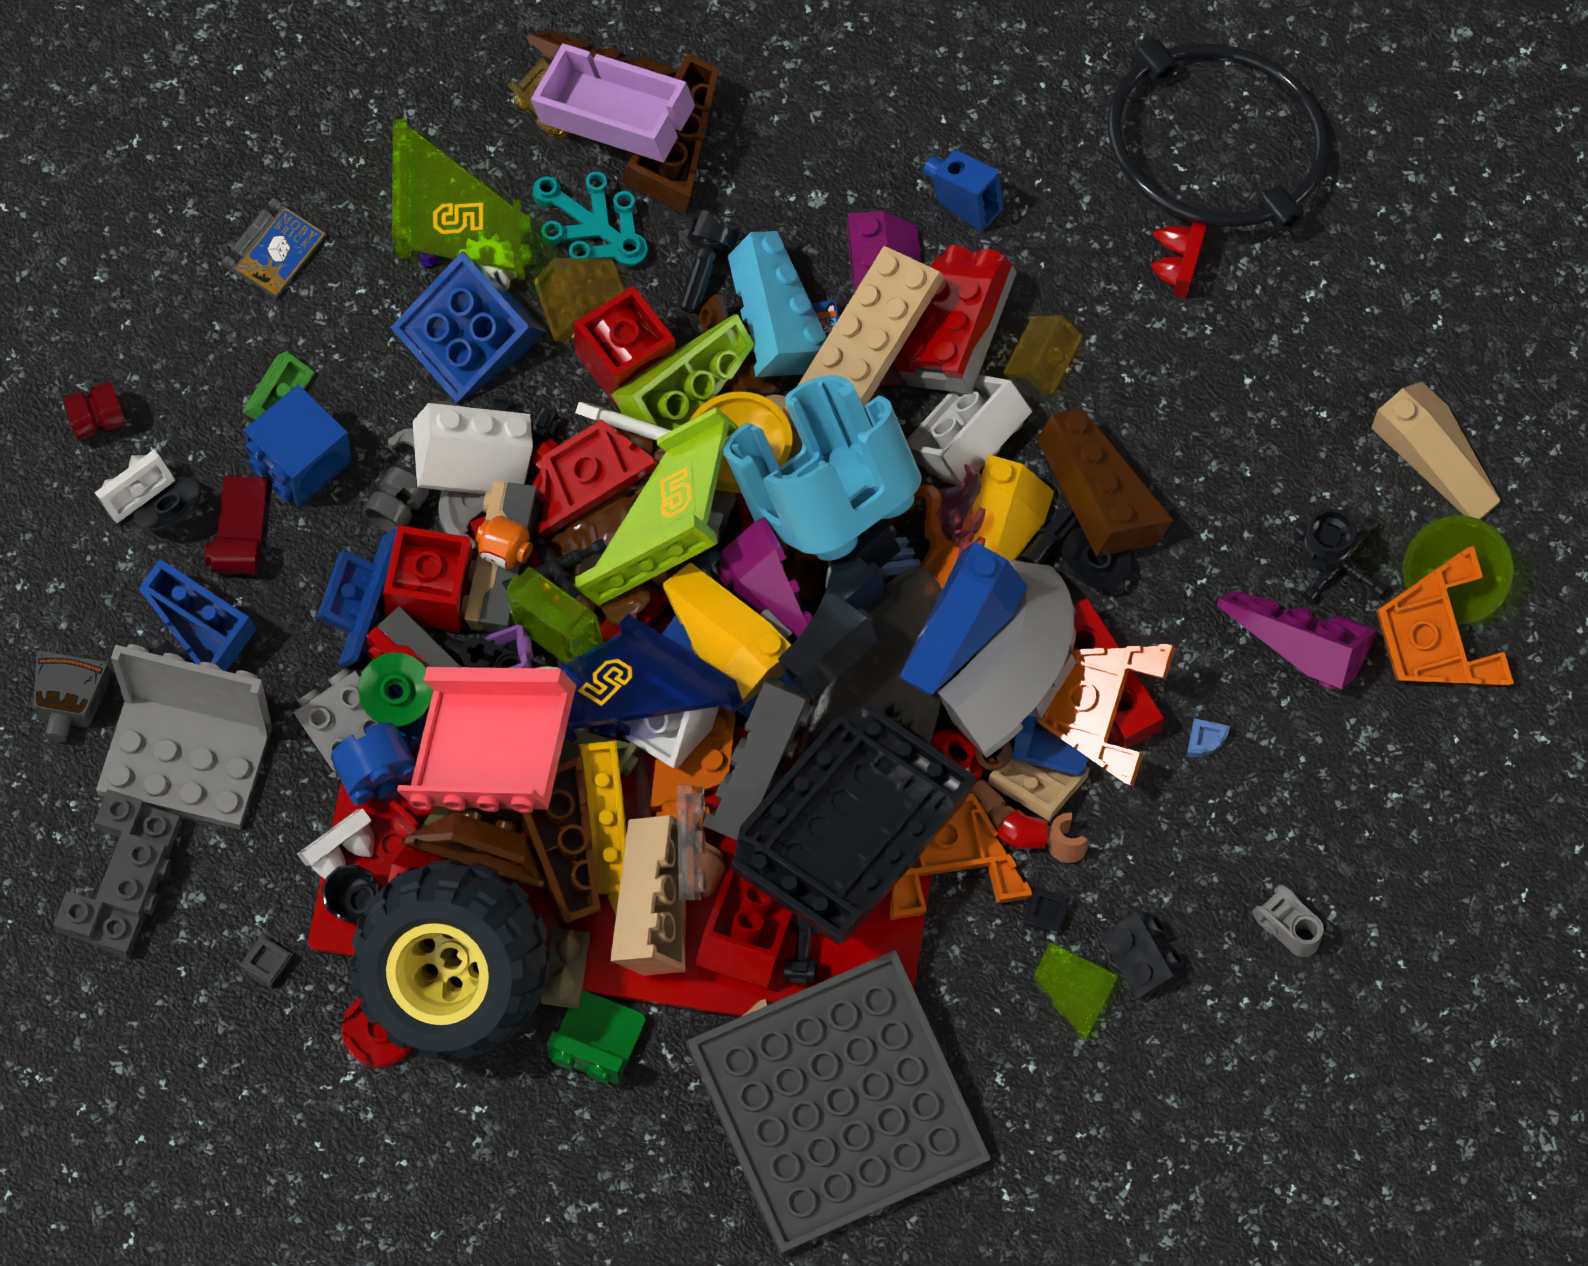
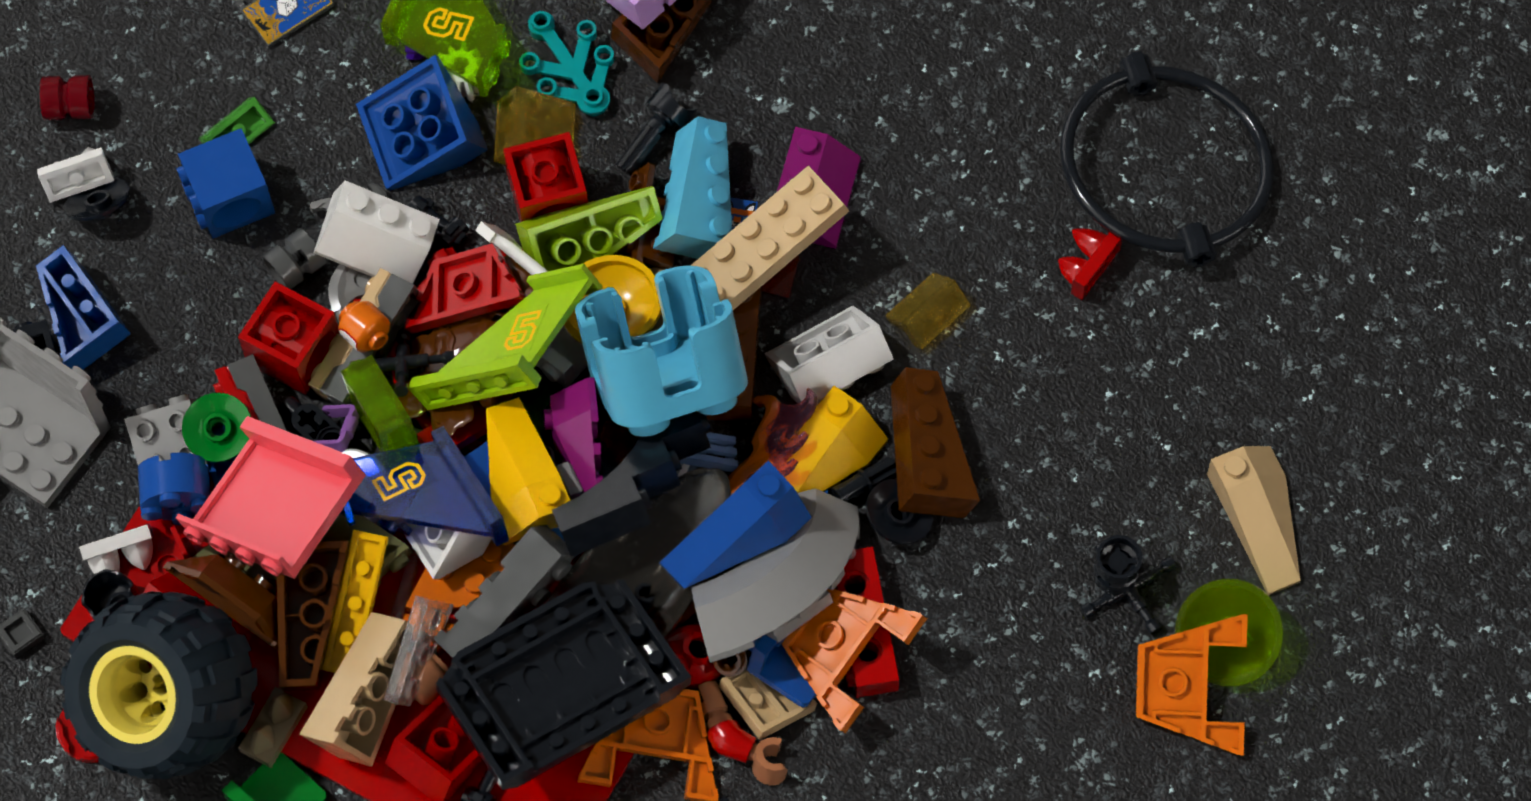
camera: 25 degrees right, 0 degrees up
(239, 528) = (153, 240): dark red door -> none
(353, 597) = (218, 335): blue bracket -> none
(958, 322) = (855, 253): red piece -> none
(966, 188) = (915, 137): blue torso -> none
(1206, 738) = (937, 711): medium blue tile -> none
(1317, 647) = (1068, 658): magenta wedge -> none

